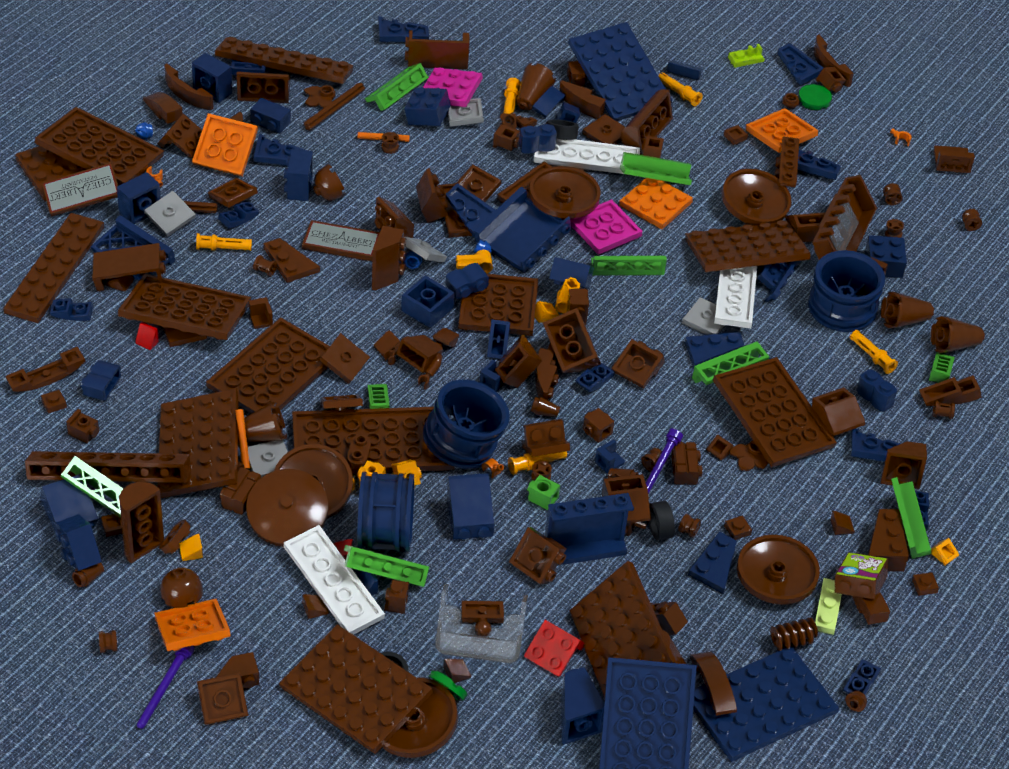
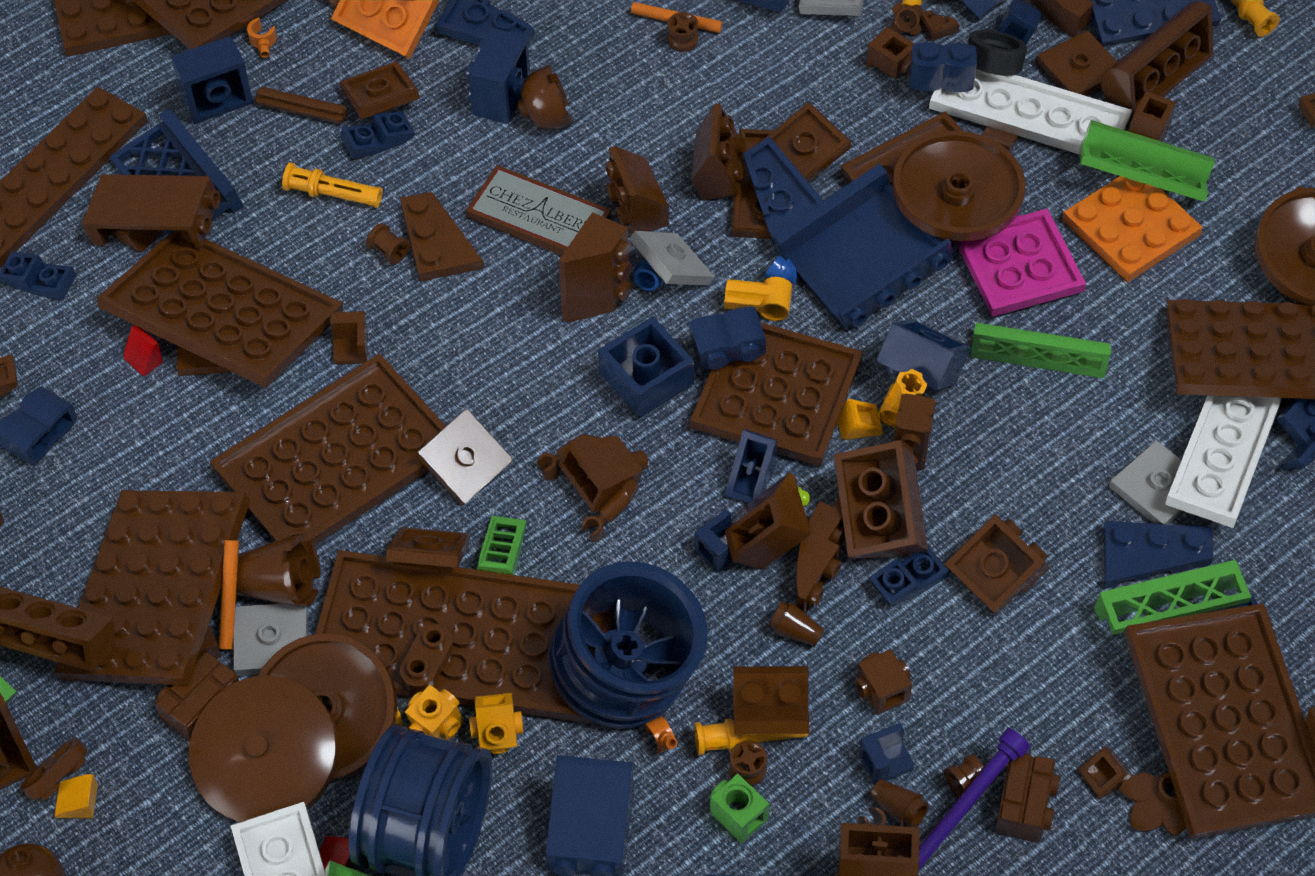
camera: 20 degrees right, 10 degrees up
(80, 189) = (122, 46): light grey tile -> none
(170, 213) = (259, 115): light grey plate -> none
(386, 342) = (550, 436): reddish brown slope -> none
(446, 337) = (660, 444): reddish brown slope -> none

